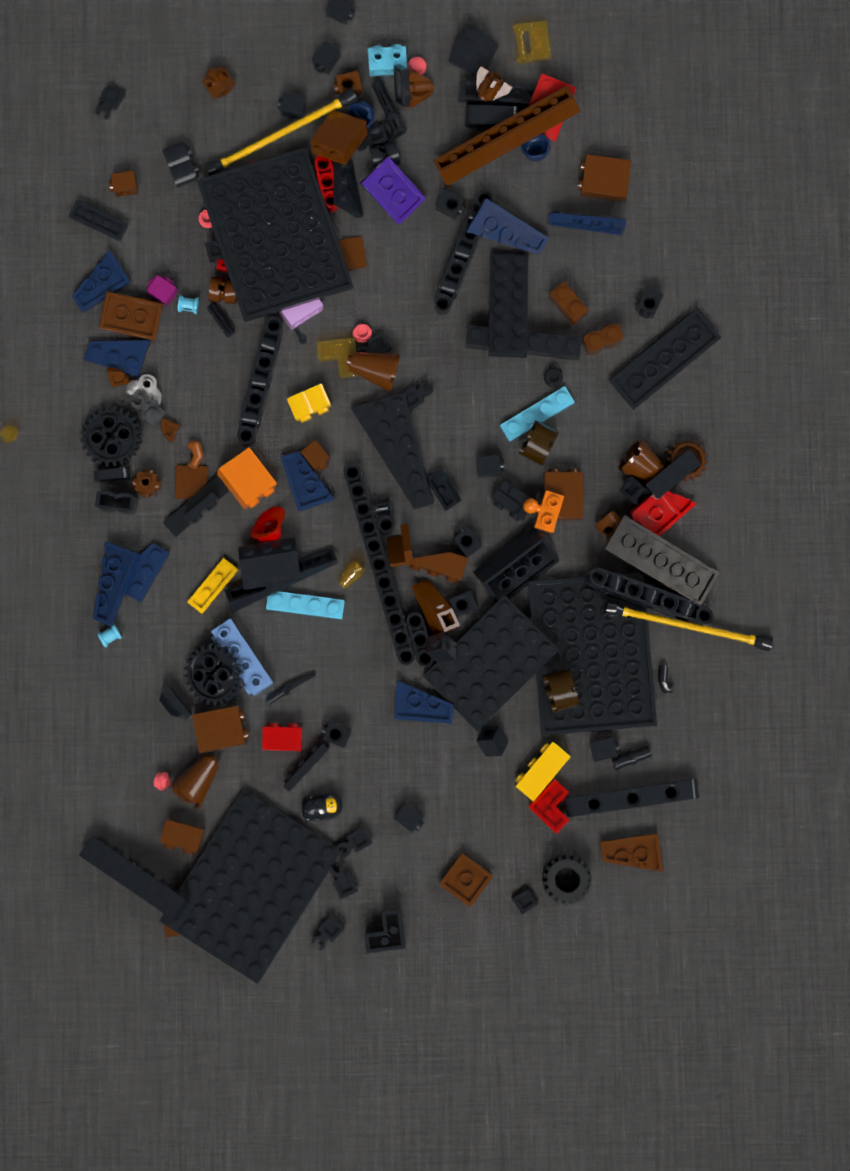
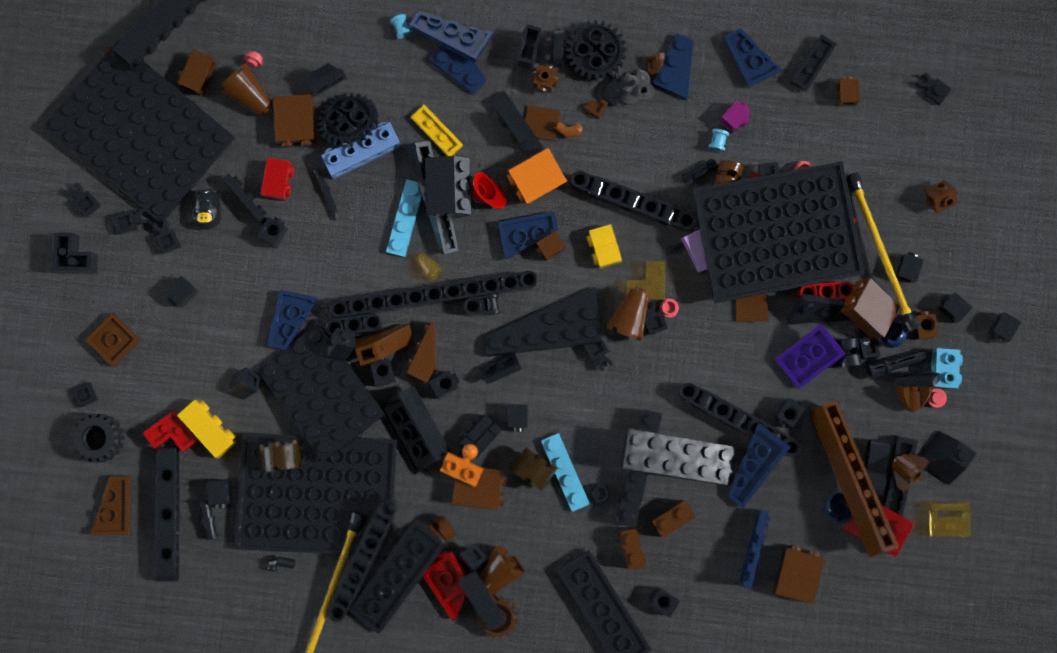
camera: 95 degrees right, 0 degrees up
(130, 316) = (713, 83): reddish brown tile -> none
(180, 164) = (861, 149): black brick -> none
(400, 548) = (446, 317): reddish brown panel -> none

